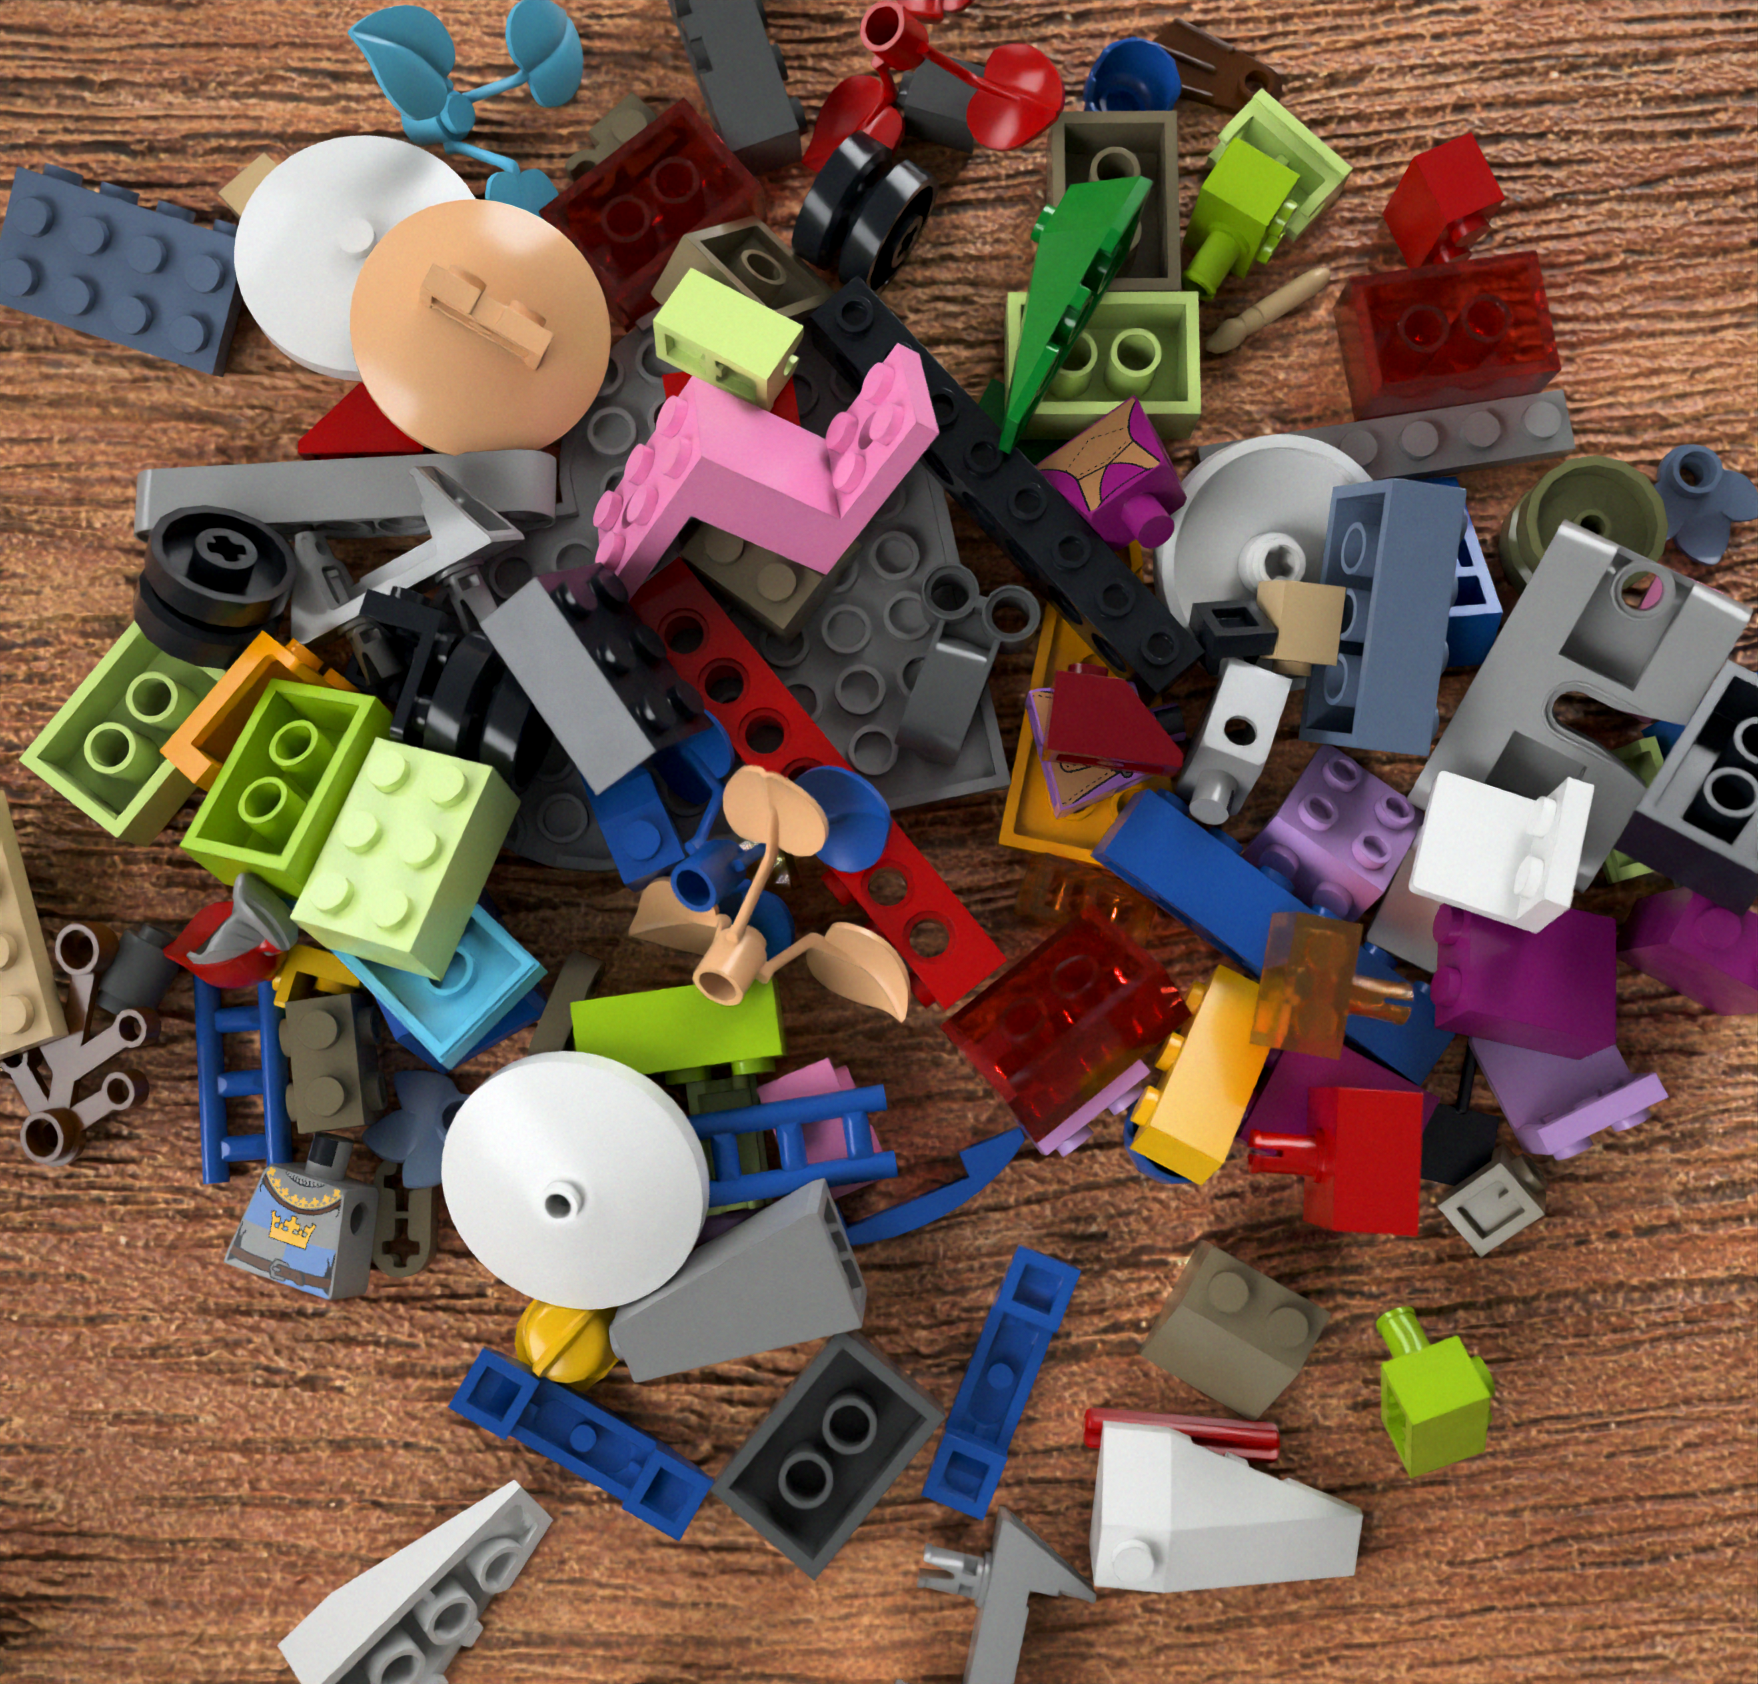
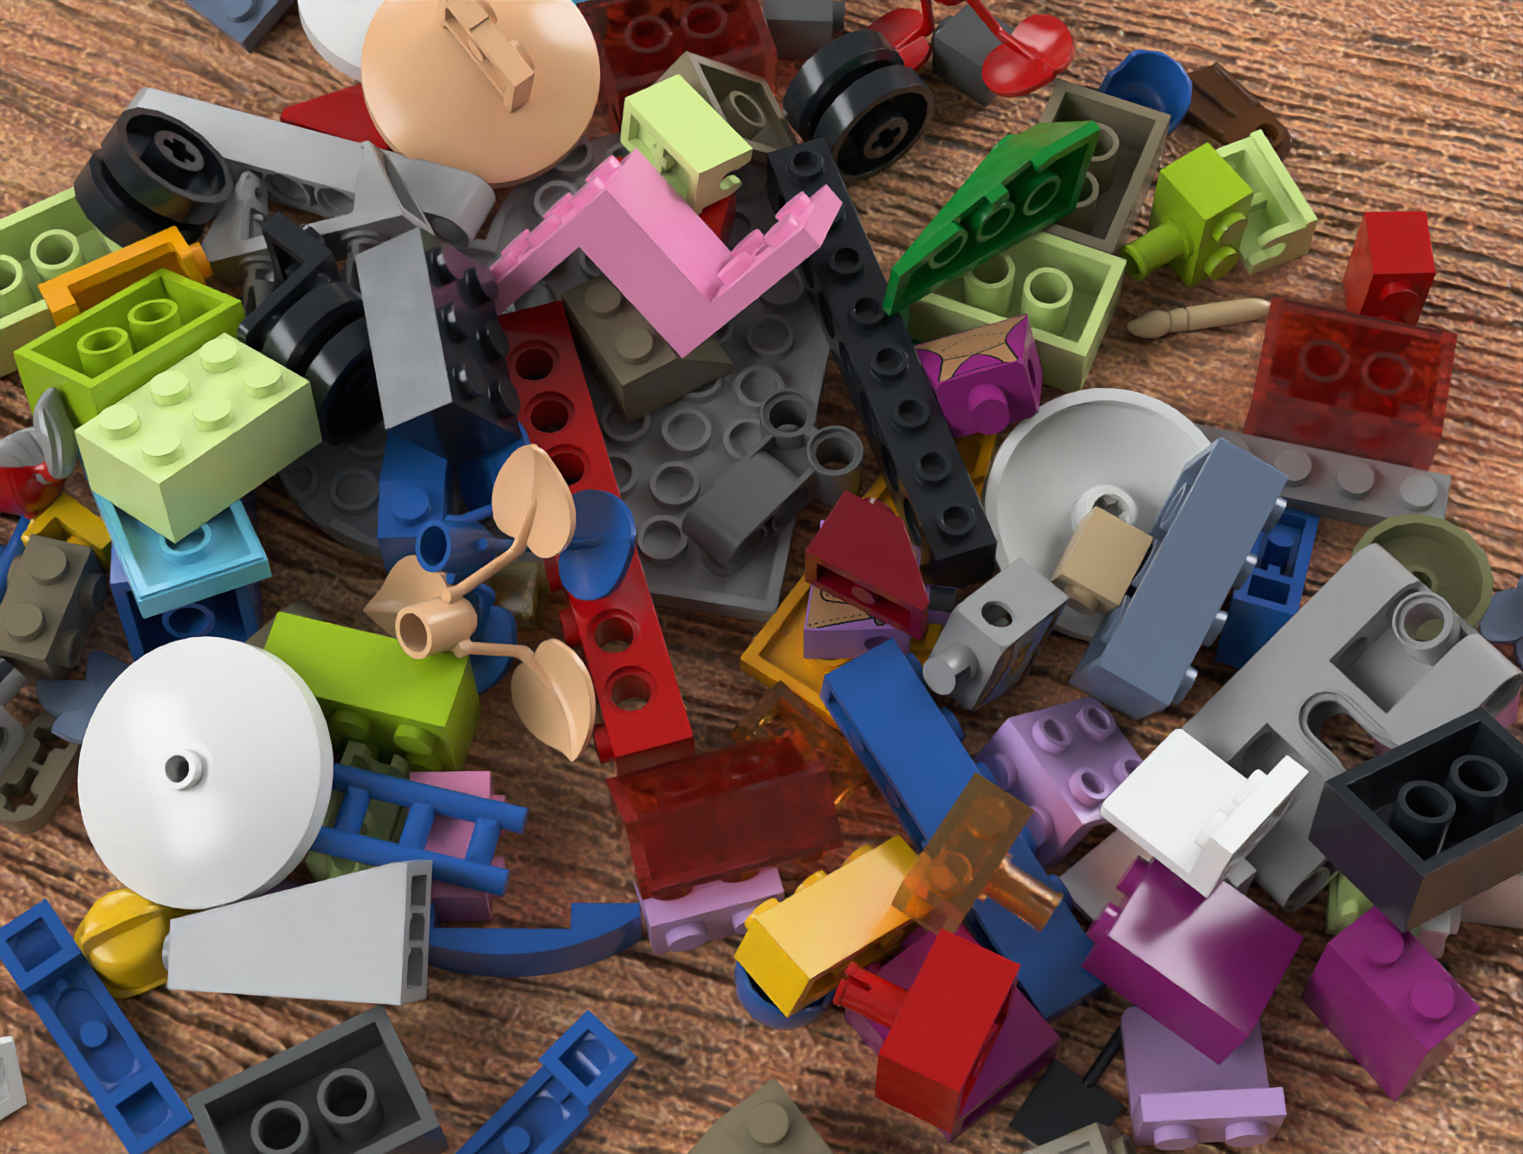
camera: 20 degrees right, 20 degrees down
(1231, 630) = (1032, 539): black tile -> none

